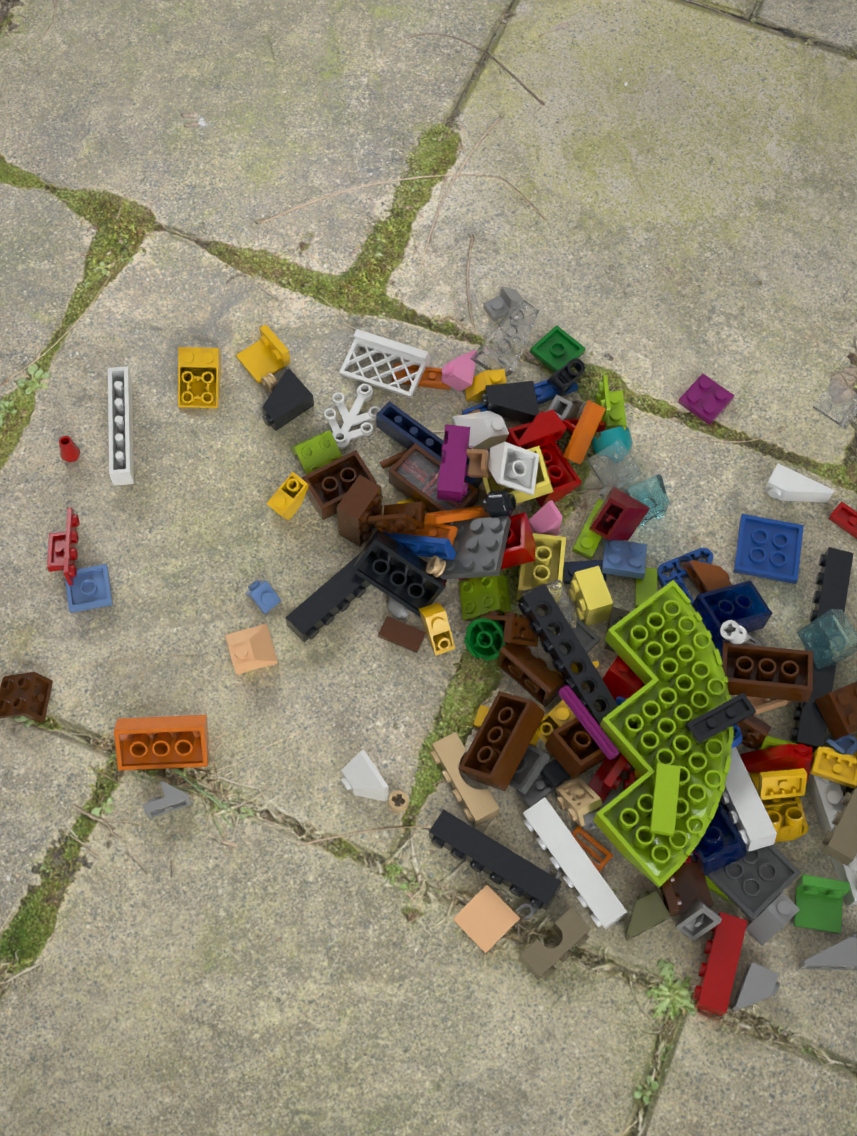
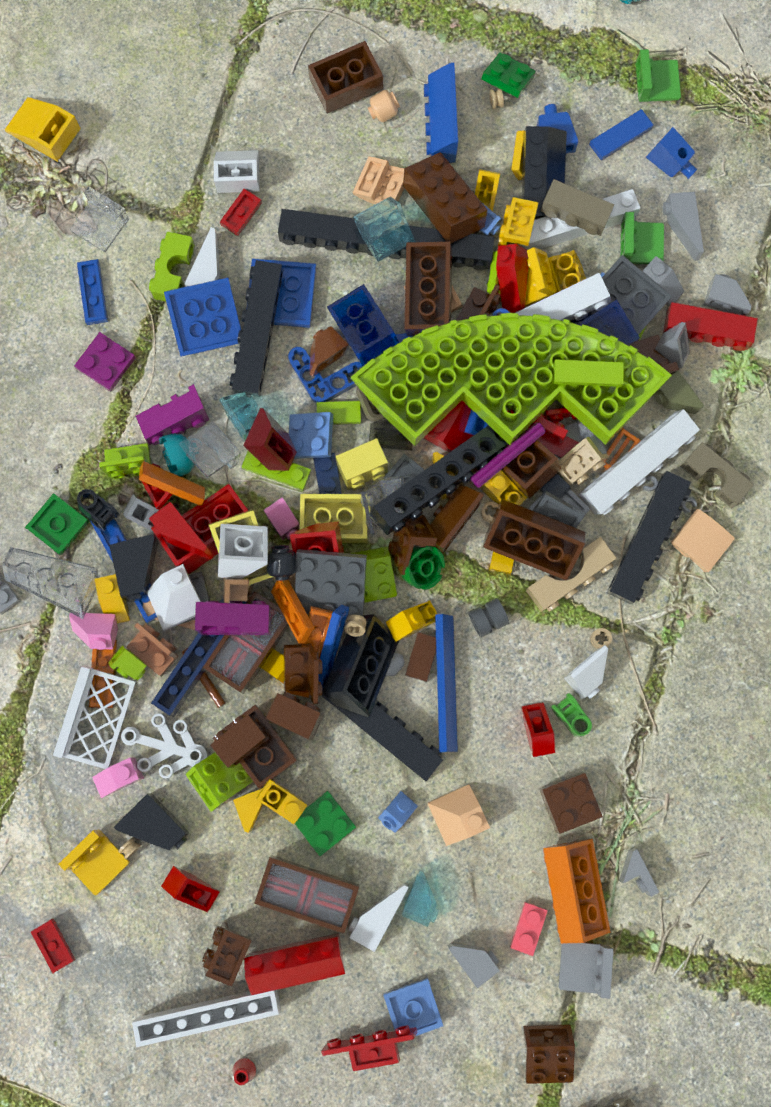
camera: 95 degrees left, 15 degrees up
(90, 740) = (586, 968): none -> light grey bracket
(118, 642) = (475, 962): none -> light grey slope
(137, 696) = (528, 928): none -> coral plate
(148, 492) = (294, 964): none -> red slope
(166, 439) = (226, 955): none -> reddish brown bracket
(167, 562) = (374, 921): none -> white slope
(180, 605) = (420, 902): none -> clear light blue slope
(199, 377) = (129, 934): yellow slope -> none
(201, 322) = (52, 945): none -> red plate
(204, 511) = (307, 894): none -> clear brick
(226, 423) = (189, 889): none -> red slope
(243, 746) = (570, 803): none -> reddish brown brick
(264, 535) = (324, 823): none -> green plate
(280, 472) = (248, 809): none -> yellow slope
(317, 727) = (538, 729): none -> red slope
(329, 758) = (572, 714): none -> bright green piece
(331, 379) = (117, 777): none -> bright pink slope
(344, 457) = (239, 741): none -> reddish brown brick
(374, 650) = (446, 683): none -> blue tile
(427, 392) = (127, 664): none -> lime brick
(430, 693) = (489, 617): none -> dark grey wheel
(439, 412) = (151, 650): none -> nougat bracket
(650, 446) = (173, 417): none -> magenta wedge
(720, 718) = (500, 324): black plate -> none
(731, 520) = (257, 328): none -> black brick
(737, 634) = (395, 313): white pin -> none
(744, 477) = (203, 316): none -> blue plate
(773, 394) = (92, 292): none -> blue tile
(812, 460) = (174, 250): none -> lime arch

